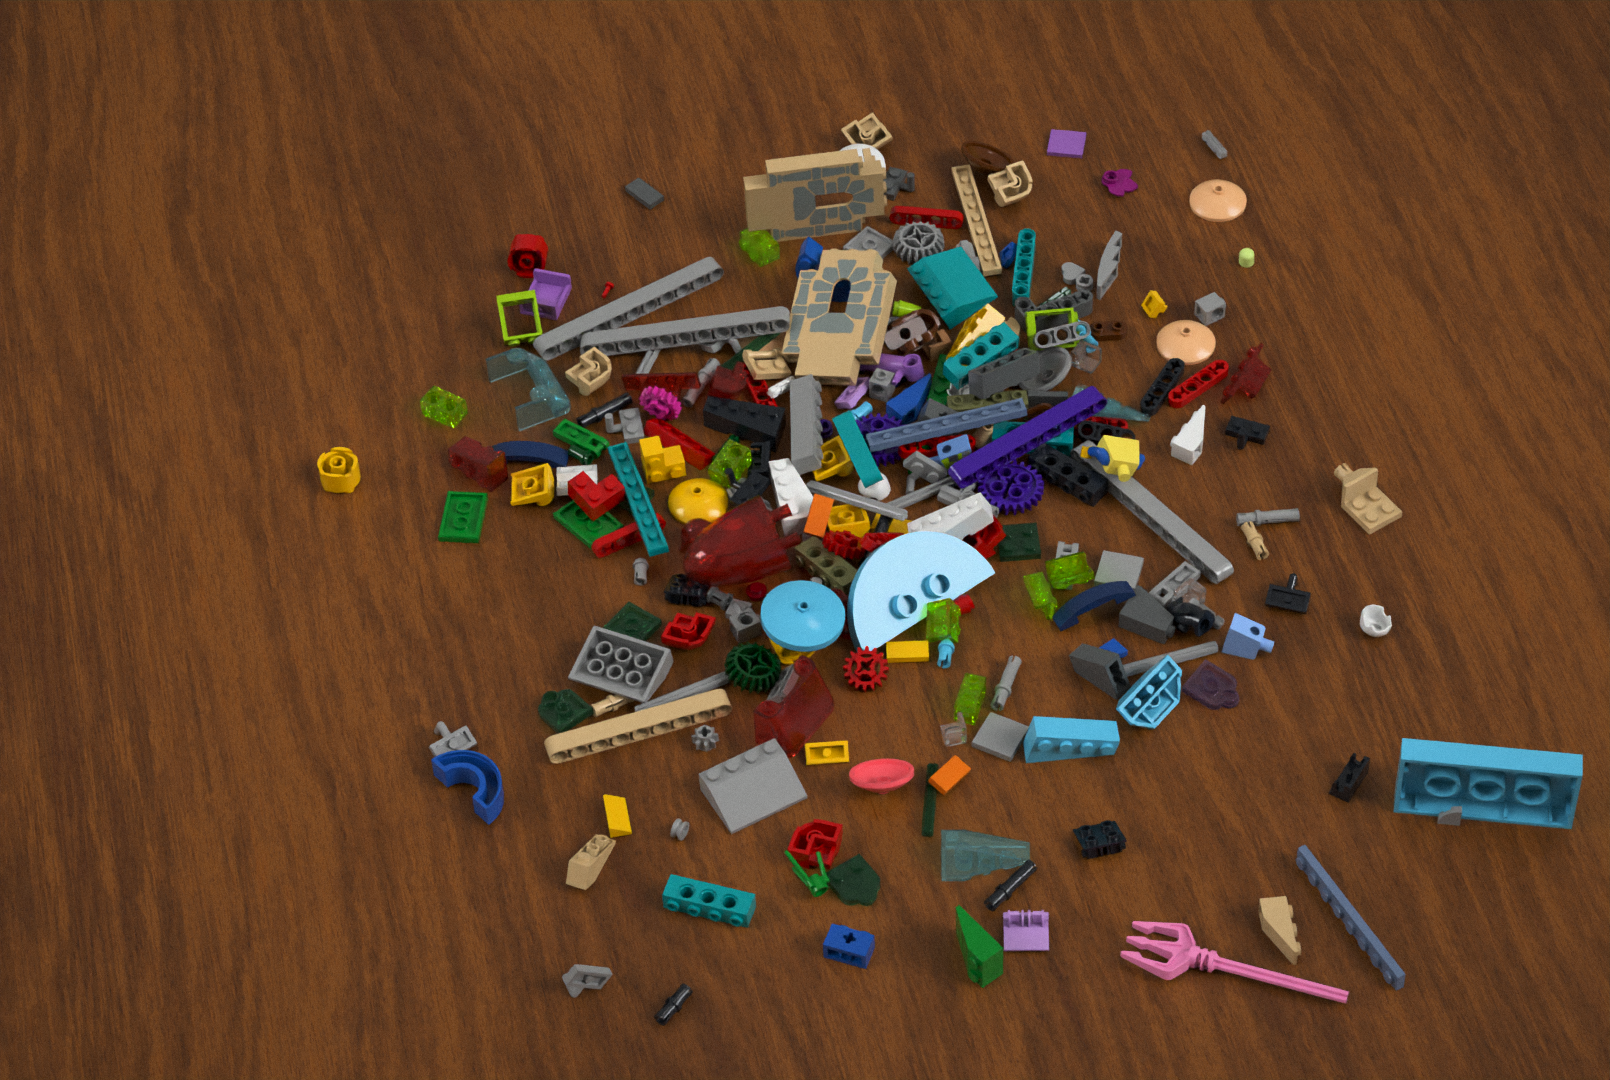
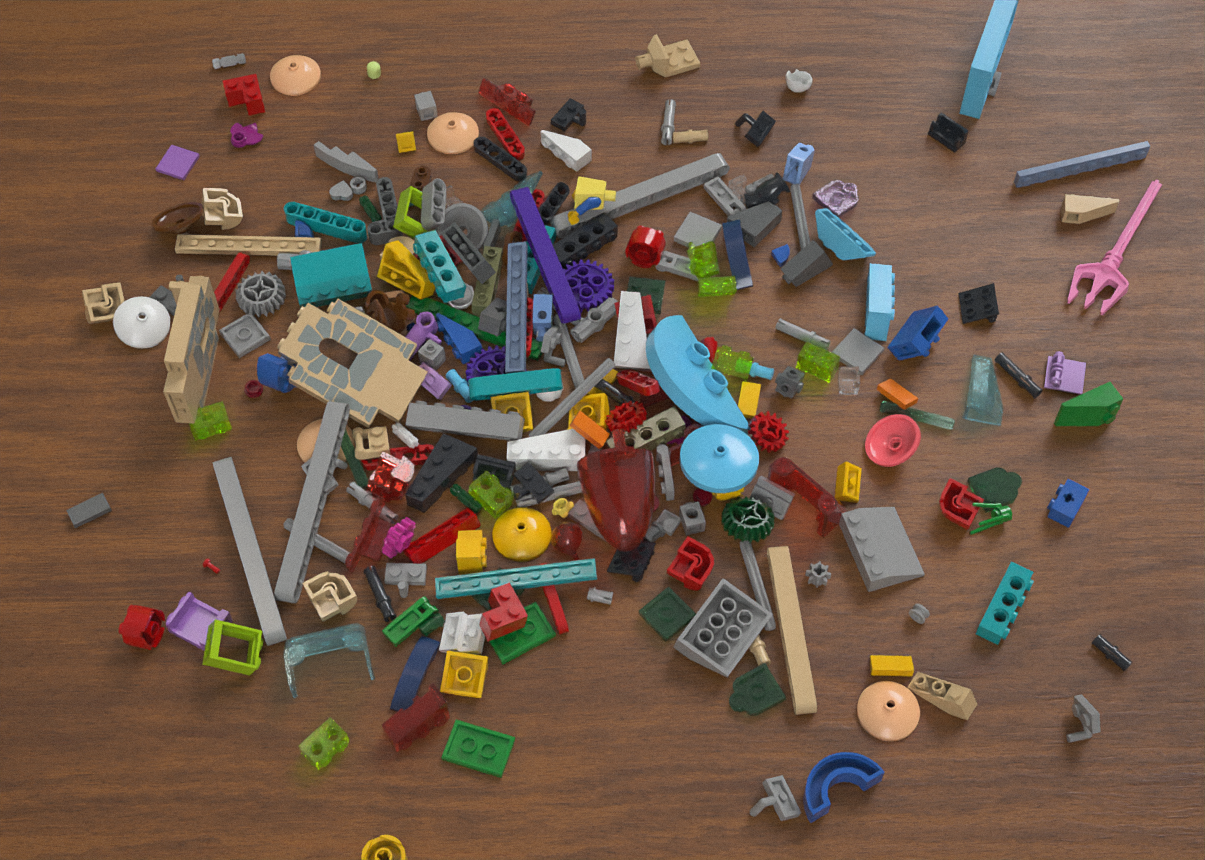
camera: 80 degrees left, 10 degrees up
(566, 830) = (888, 722): none -> light nougat dish
(934, 676) = (789, 382): none -> dark grey brick
(1031, 777) = (918, 333): none -> blue piece
(1074, 523) = (645, 246): none -> red brick
(1171, 166) = (244, 90): none -> red brick

